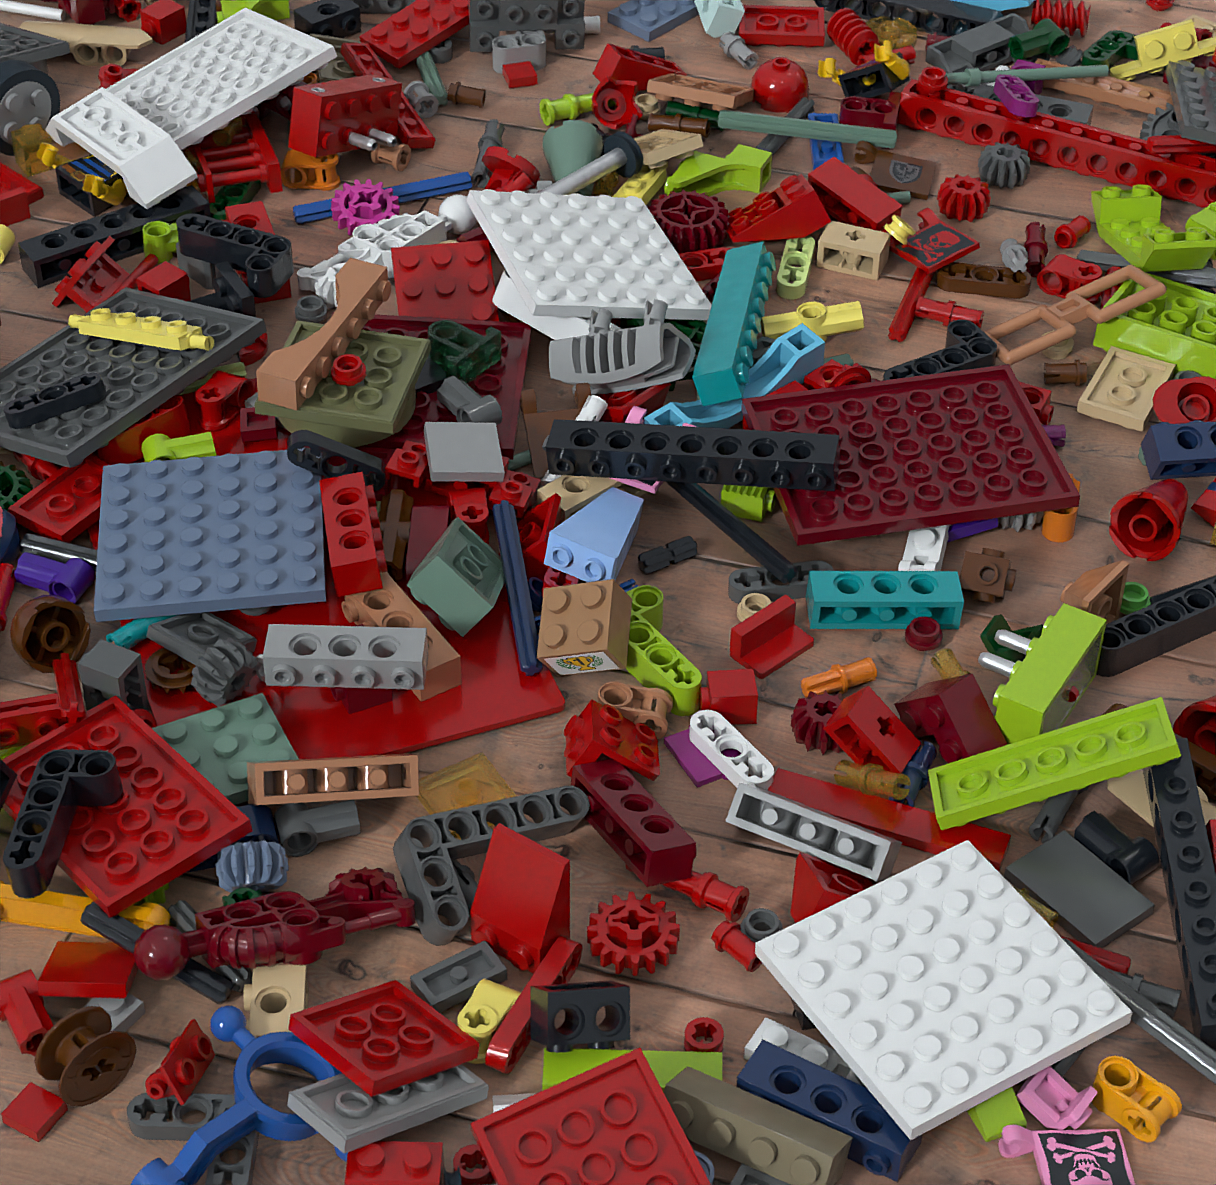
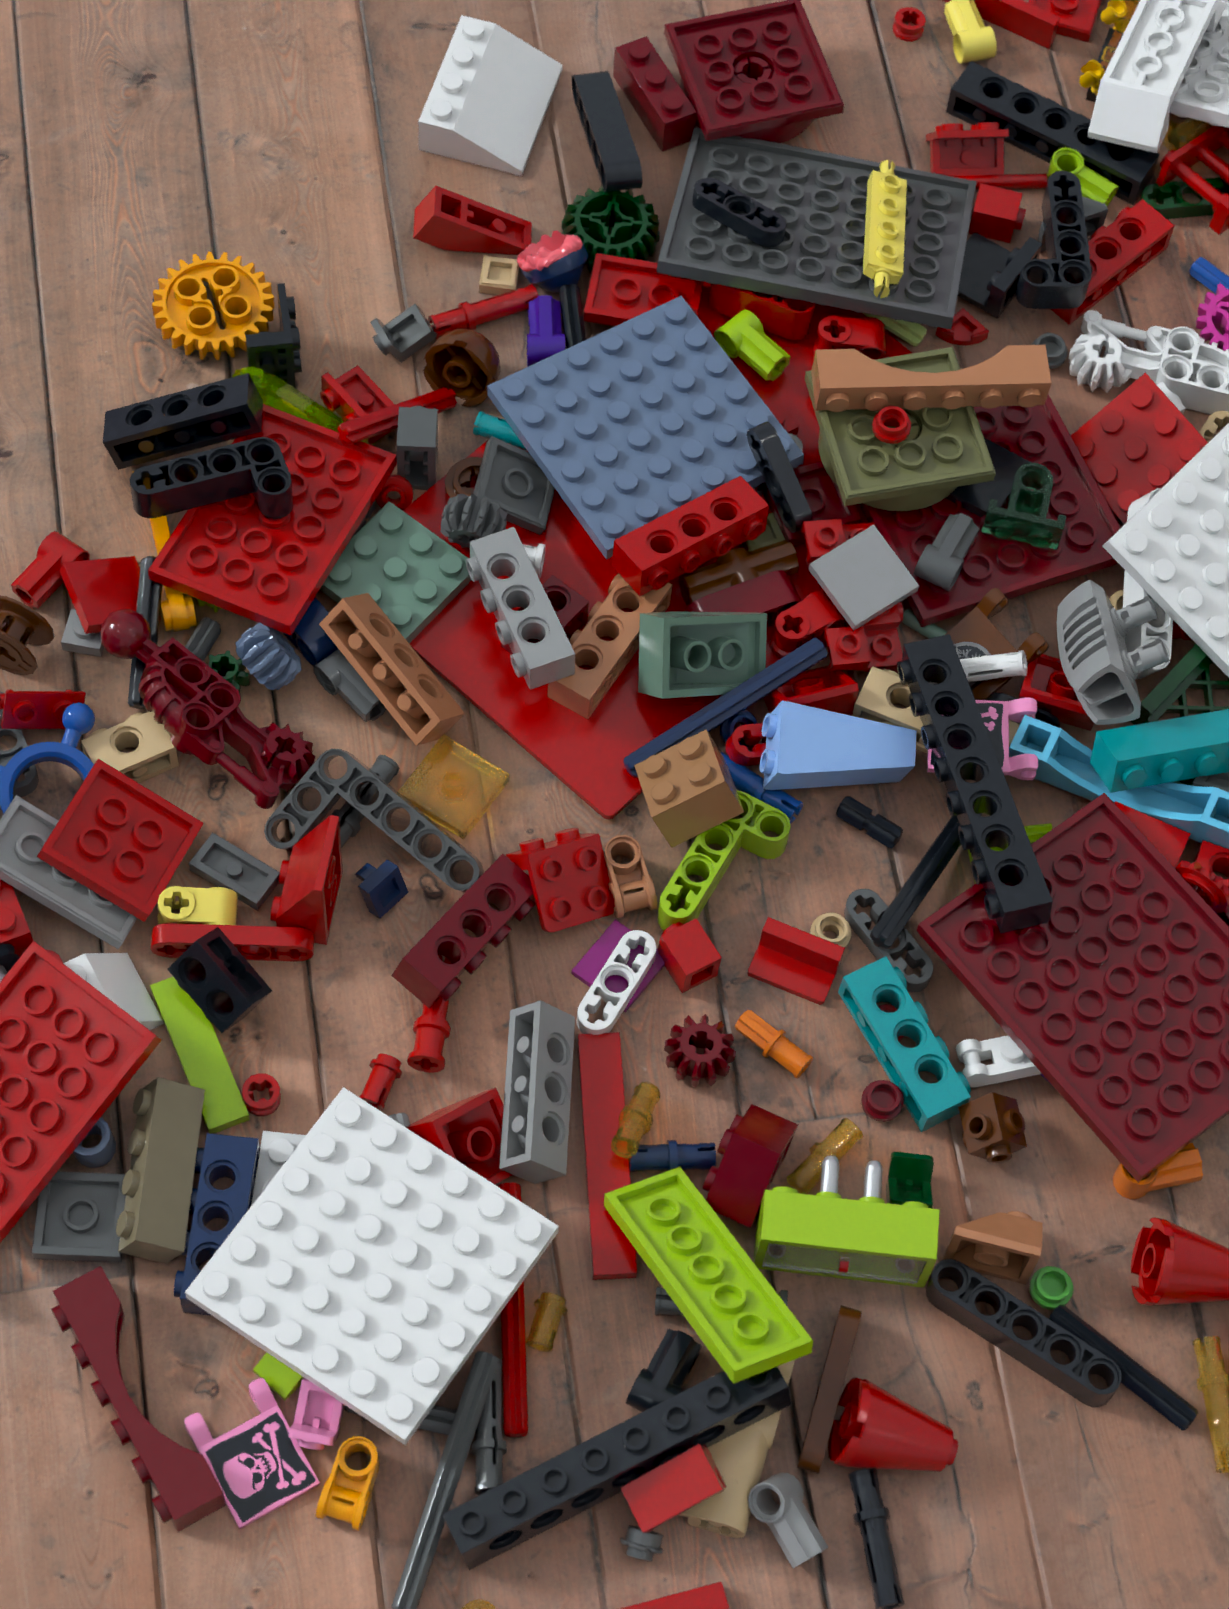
camera: 60 degrees right, 20 degrees up
(633, 934) = (338, 1003): red gear -> none
(760, 924) = (408, 1083): dark grey plate -> none
(871, 732) = (683, 1122): red brick -> none
(1081, 888) = (598, 1359): dark grey tile -> none

